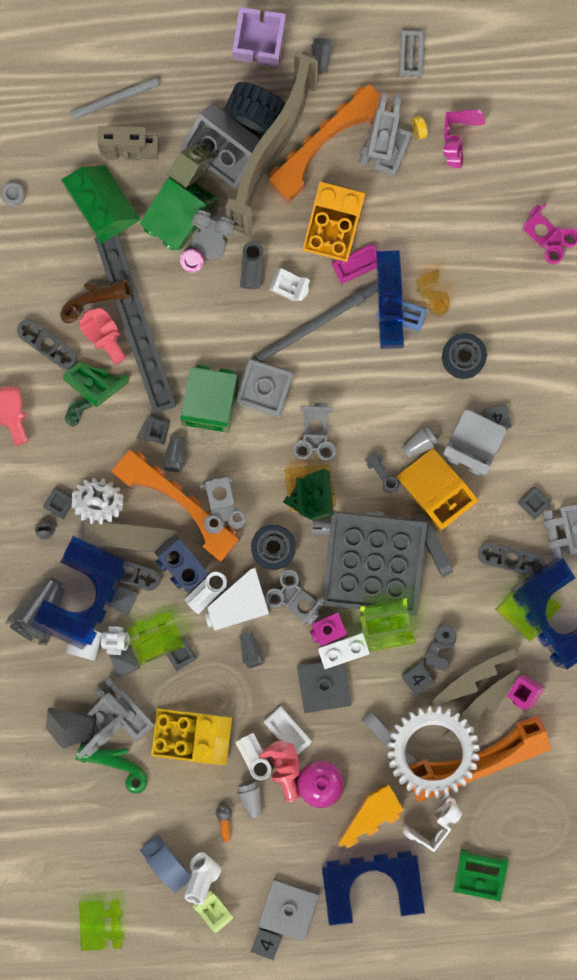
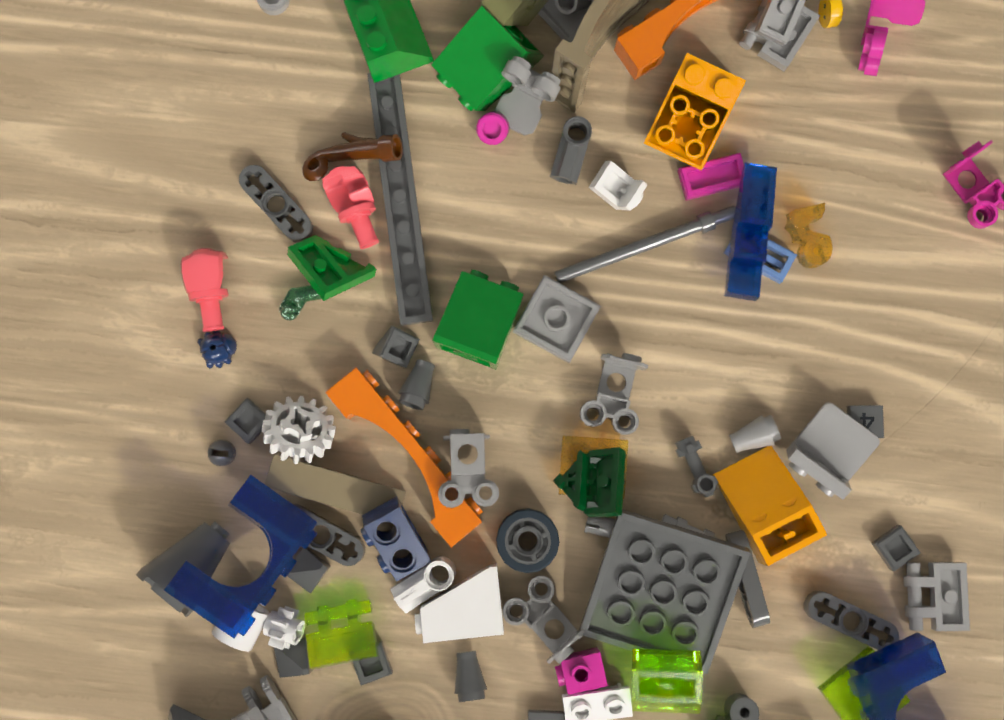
camera: 10 degrees right, 0 degrees up
(30, 460) = (225, 348): none -> dark blue animal
(473, 346) = (854, 326): wheel -> none

